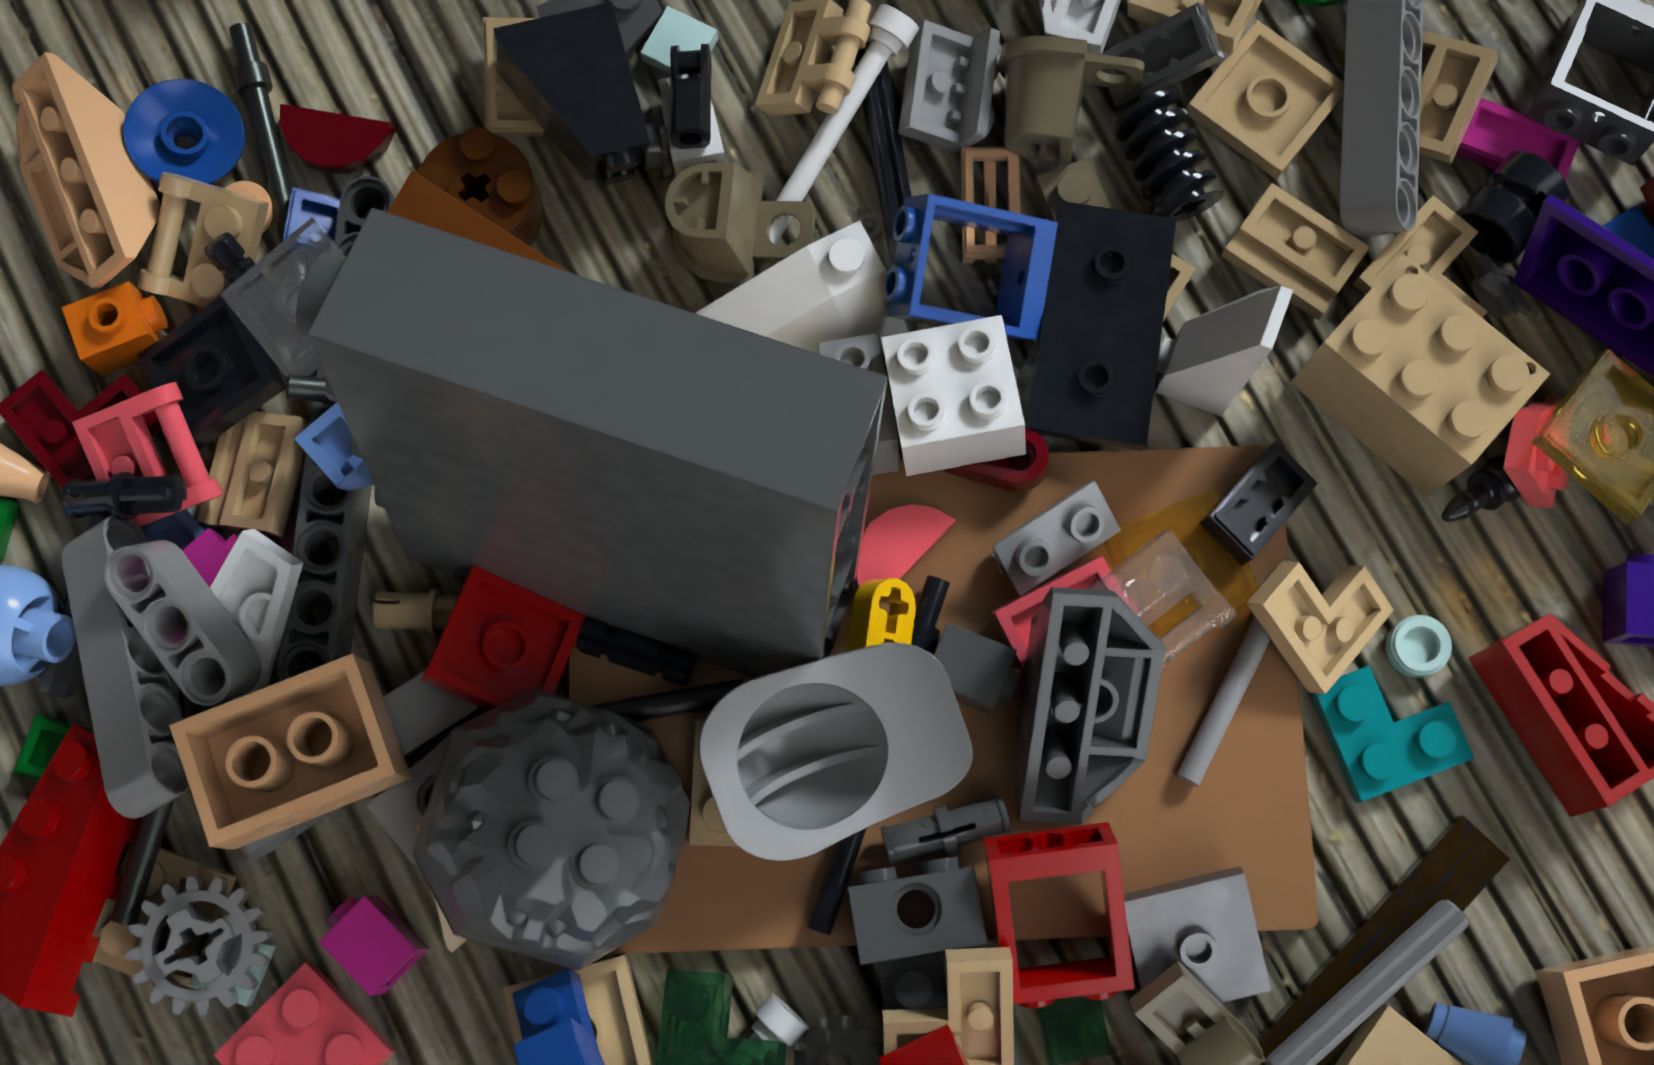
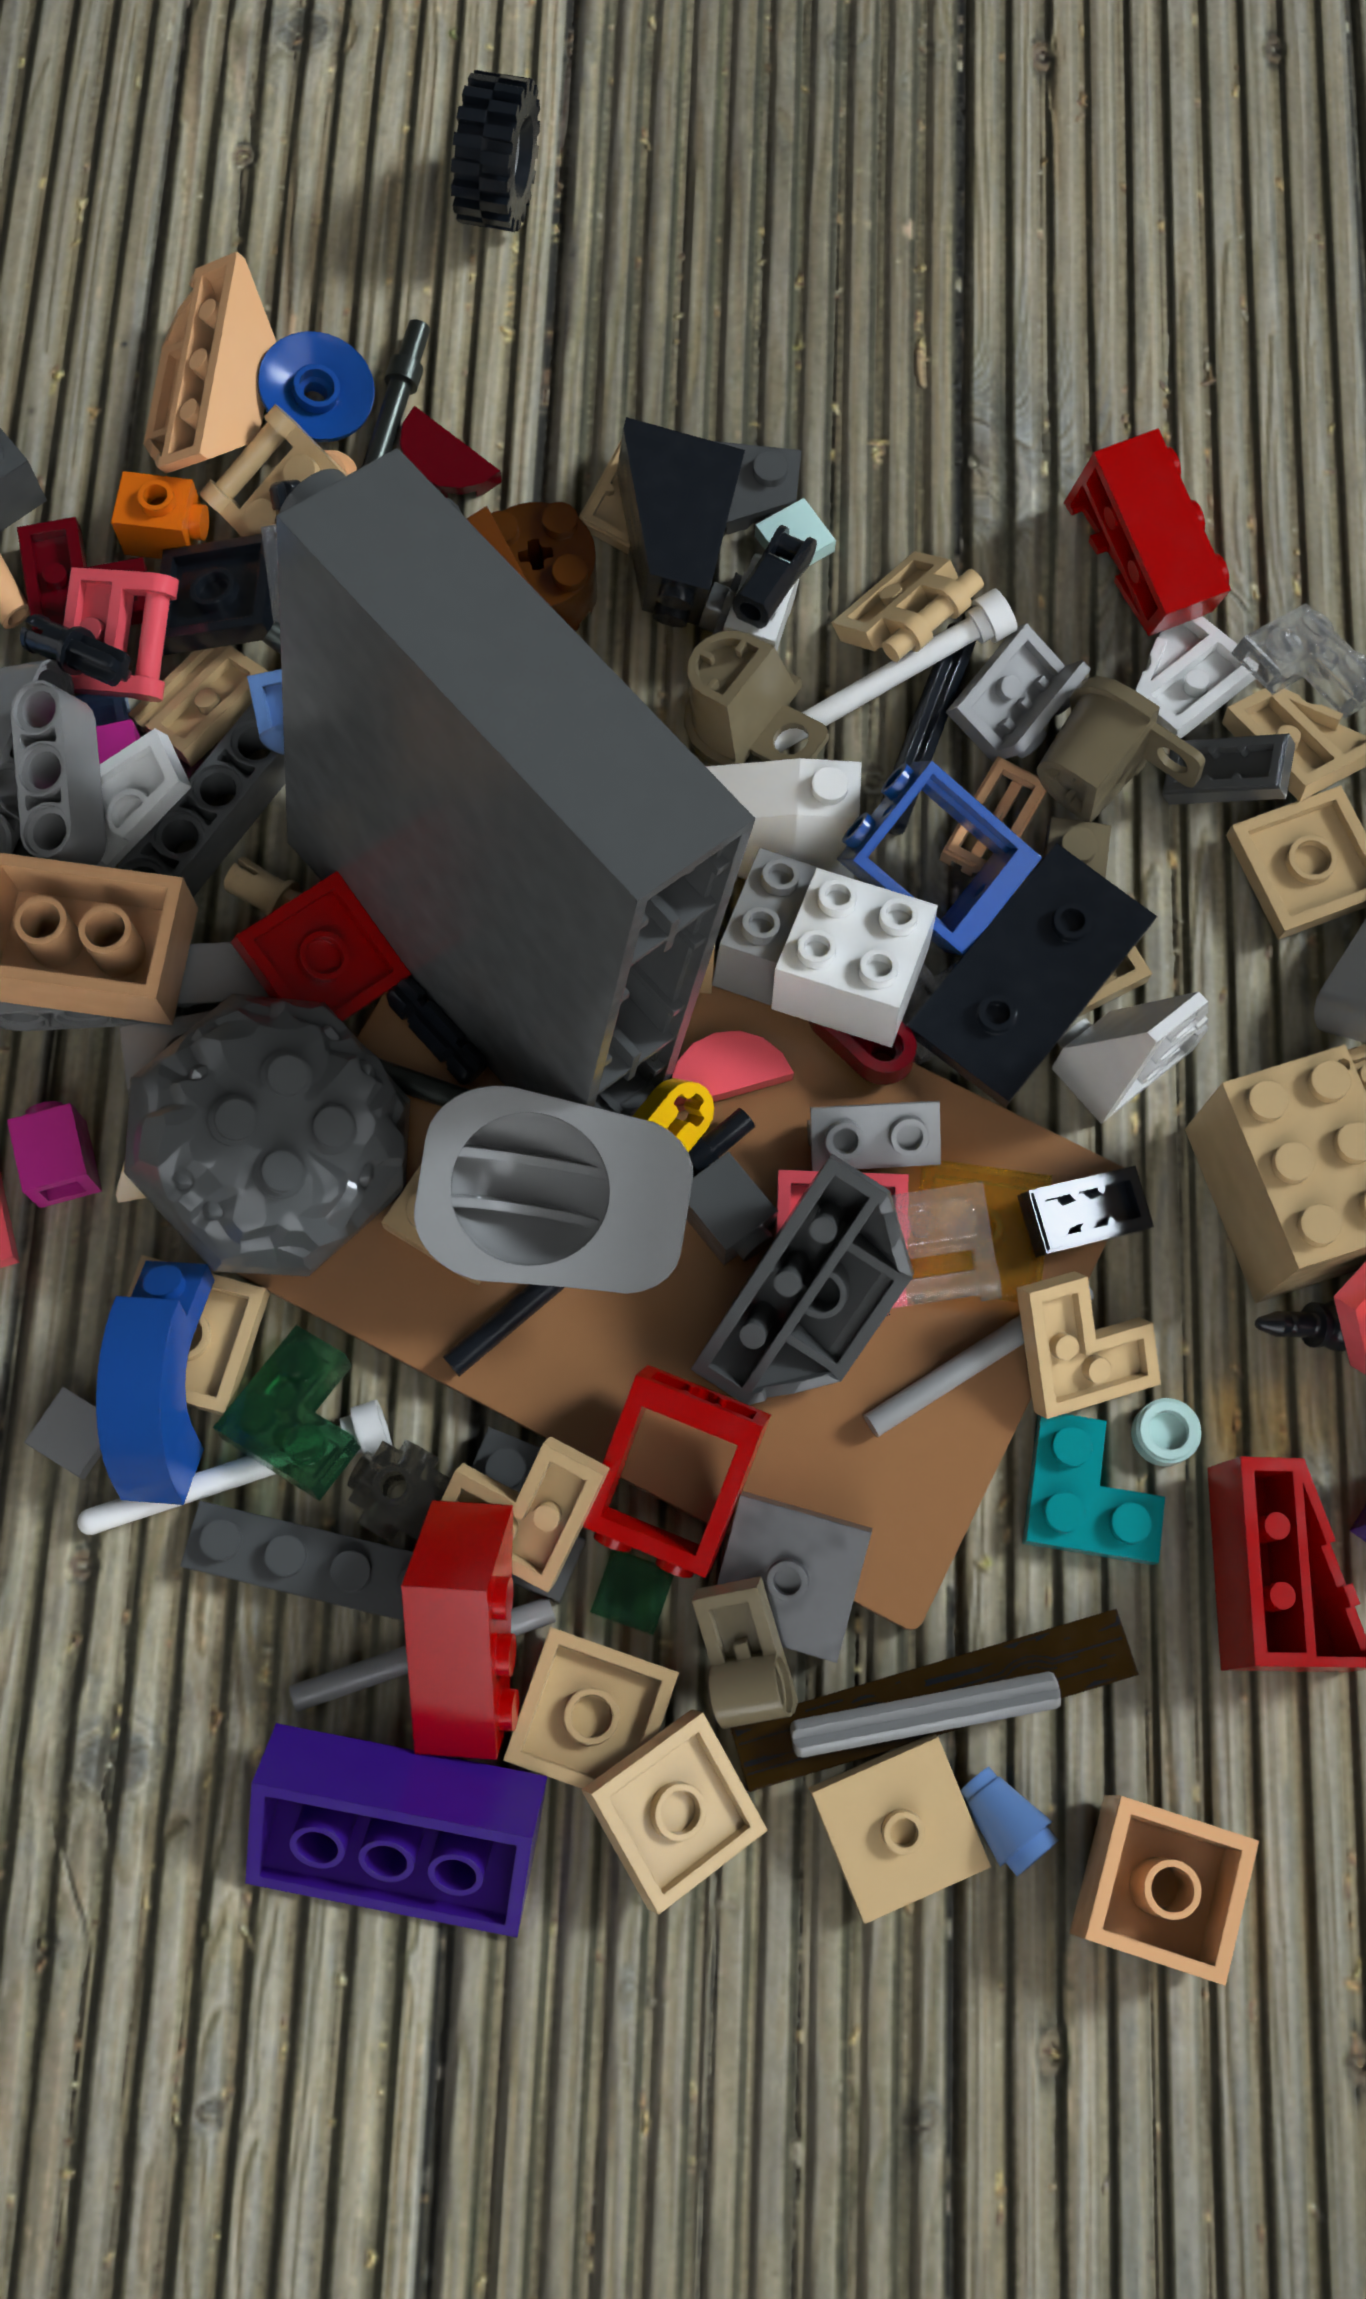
camera: 25 degrees right, 5 degrees down
(907, 842) = (573, 1331): dark grey pin -> none
(955, 917) = (513, 1370): dark grey brick -> none
(1162, 157) = (1182, 861): black piece -> none
(1295, 249) = (1257, 1008): tan plate -> none

